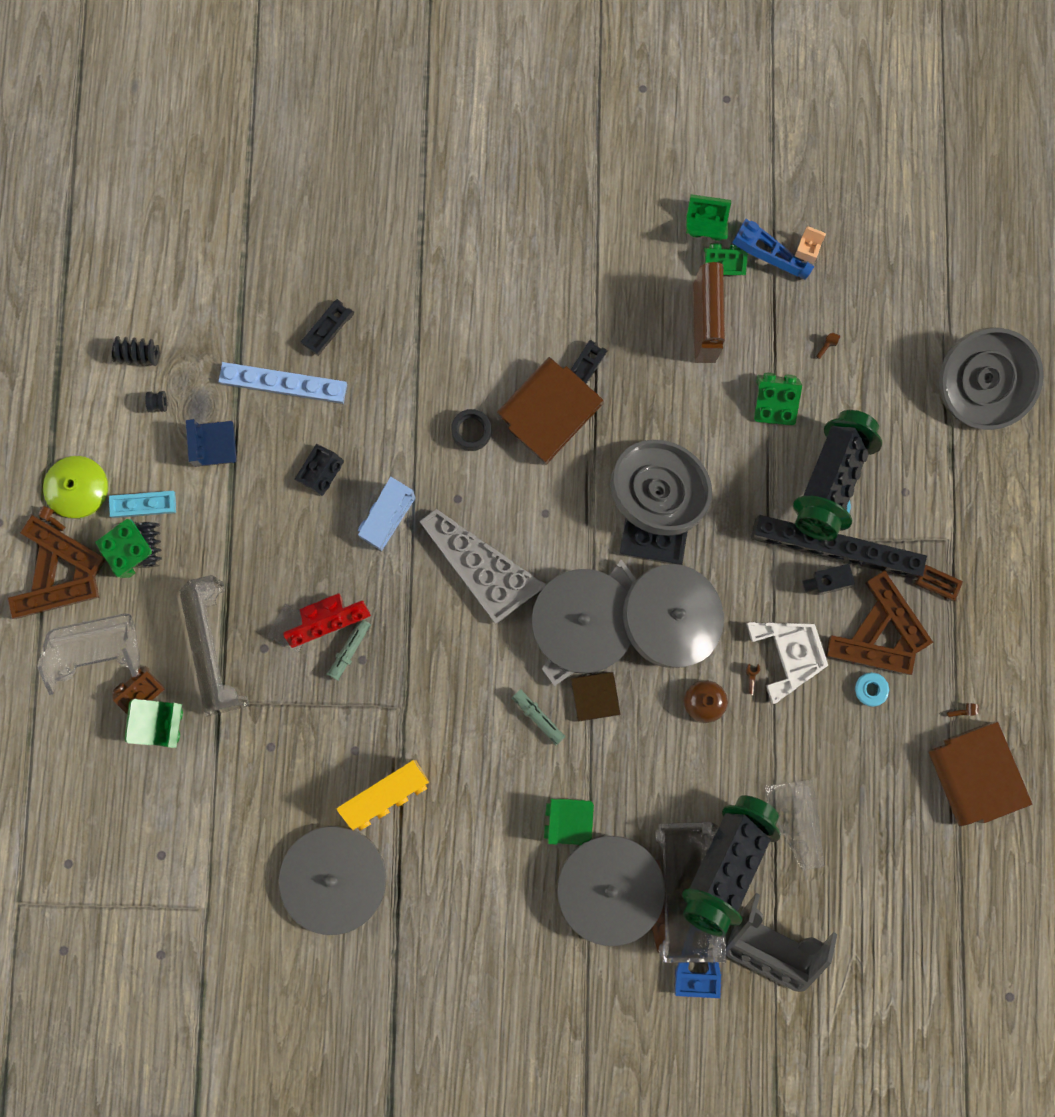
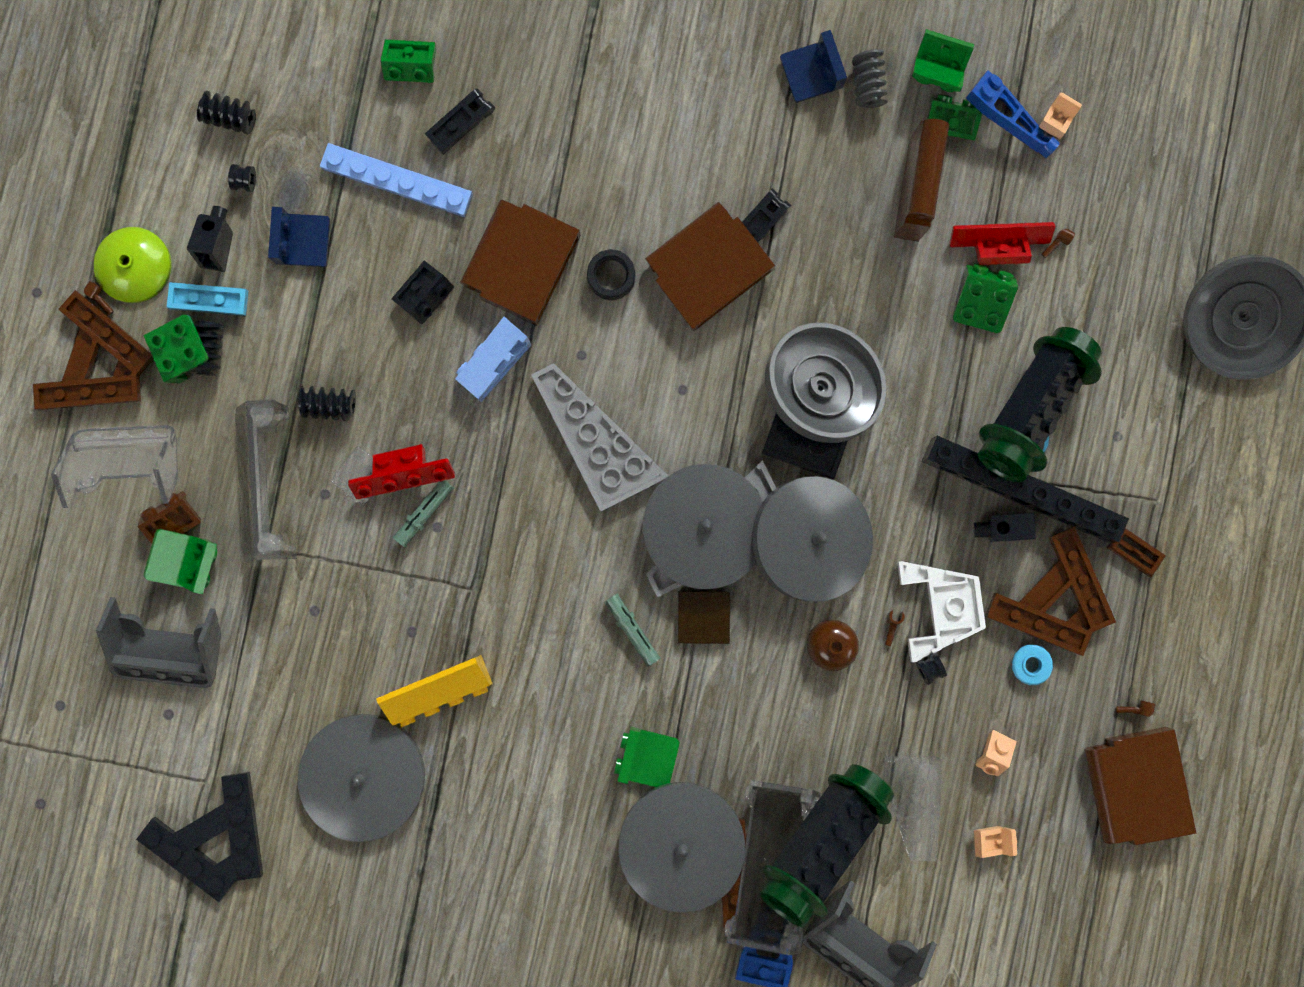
camera: 10 degrees right, 5 degrees up
(139, 455) = (211, 240): none -> black torso
(147, 806) = (158, 654): none -> dark grey windscreen
(189, 966) = (181, 850): none -> black plate
(254, 574) = (326, 405): none -> black piece
(278, 286) = (408, 61): none -> green bracket
(395, 430) = (520, 260): none -> reddish brown piece
(607, 239) = (814, 69): none -> dark blue bracket
(651, 240) = (868, 79): none -> dark grey piece
(782, 352) = (1002, 242): none -> red bracket
(790, 706) = (931, 668): none -> black wheel
(857, 768) = (996, 754): none -> light nougat bracket
(869, 841) = (995, 842): none -> light nougat bracket

